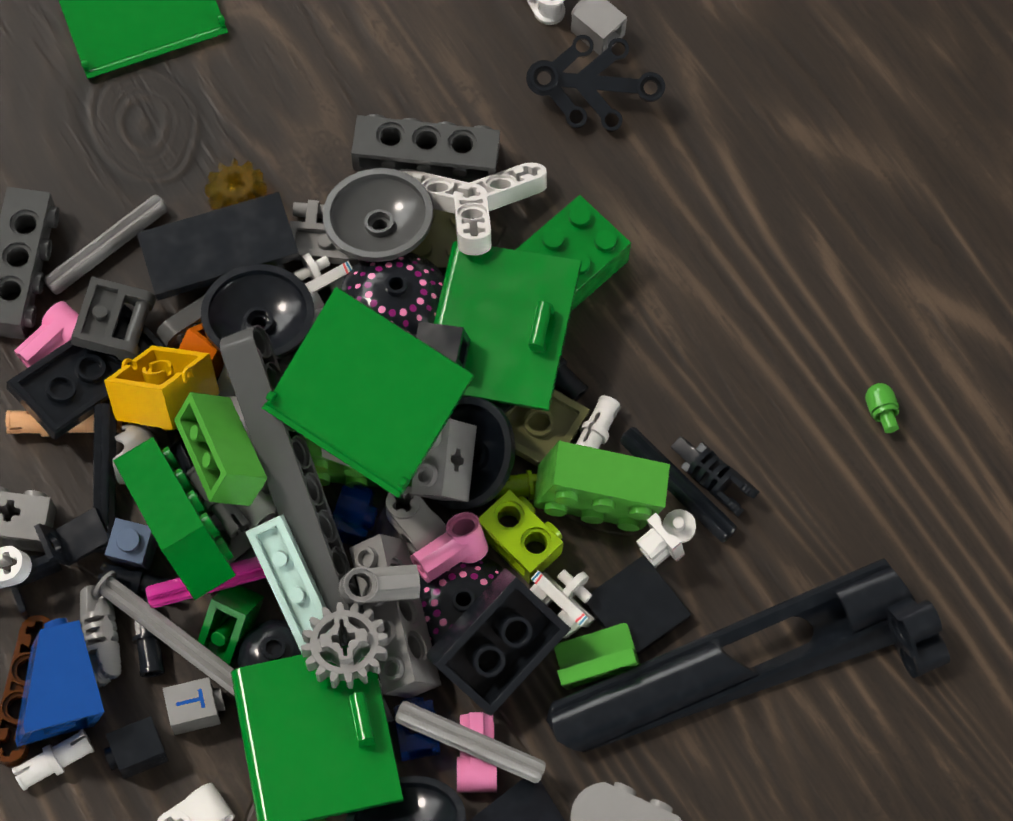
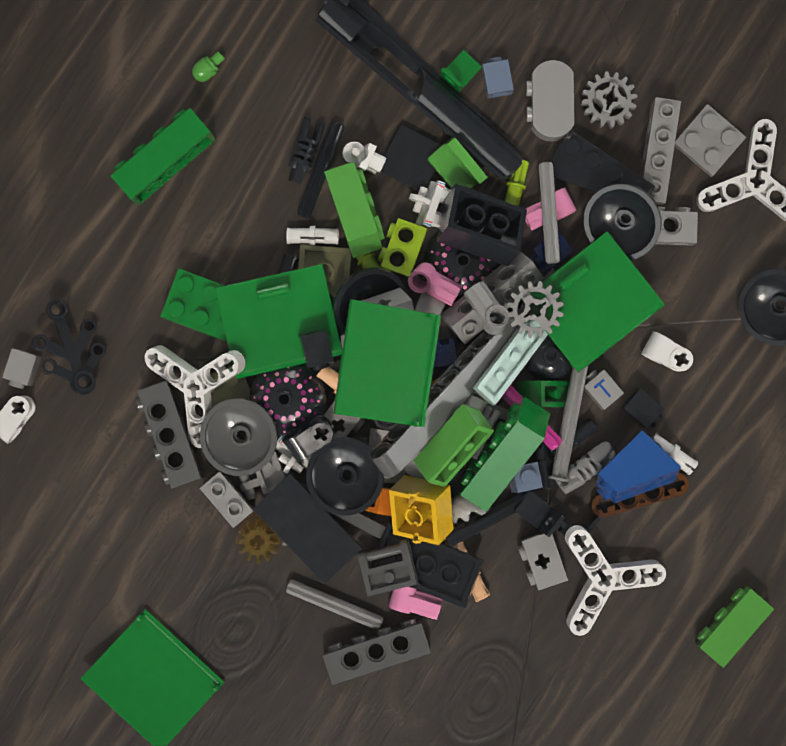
camera: 110 degrees left, 20 degrees up
(307, 174) = (227, 499): none -> light grey brick
(324, 277) = (306, 440): none -> black piece
(531, 727) = (516, 184): none -> lime axle
(695, 771) = (497, 78): none -> sand blue brick
(727, 725) = (460, 71): none -> green bracket
(786, 291) = (163, 156): none -> green brick

